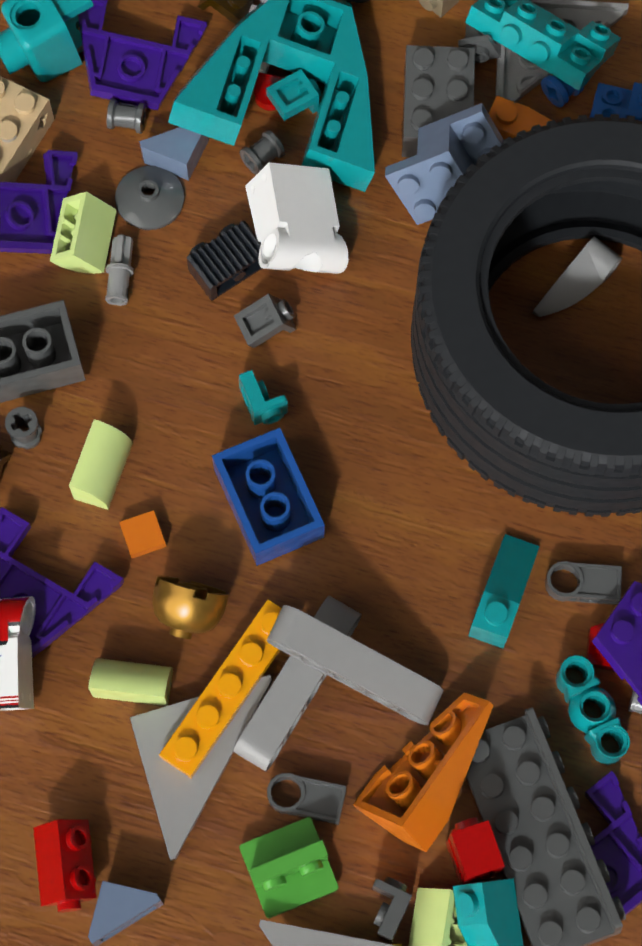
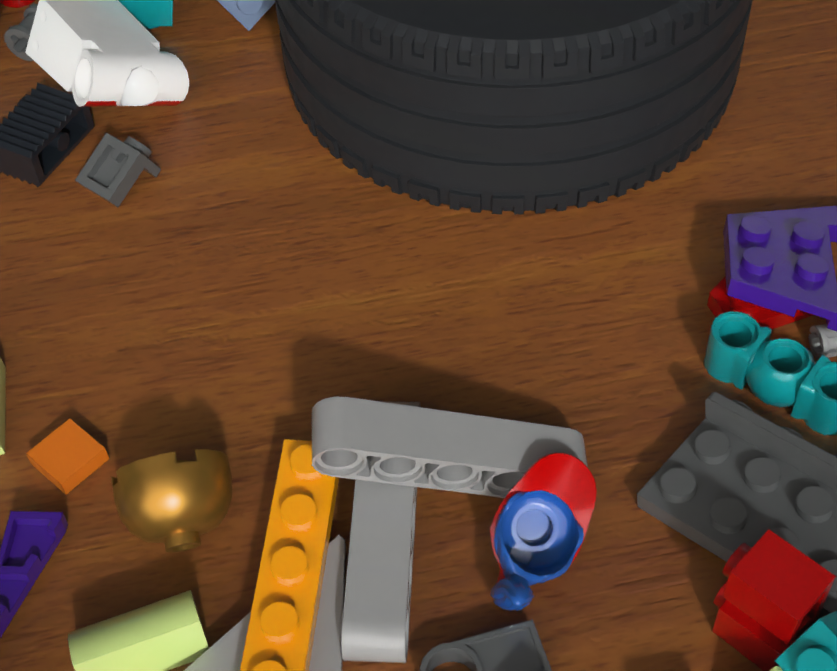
camera: 25 degrees left, 20 degrees down
(258, 402) = (153, 249): teal bracket -> none
(268, 496) = (220, 328): blue brick -> none
(379, 738) = (541, 526): none -> blue hair
(423, 786) = (638, 563): orange wedge -> none
(503, 591) = (584, 311): teal slope -> none
(595, 583) = (677, 250): dark grey piece -> none

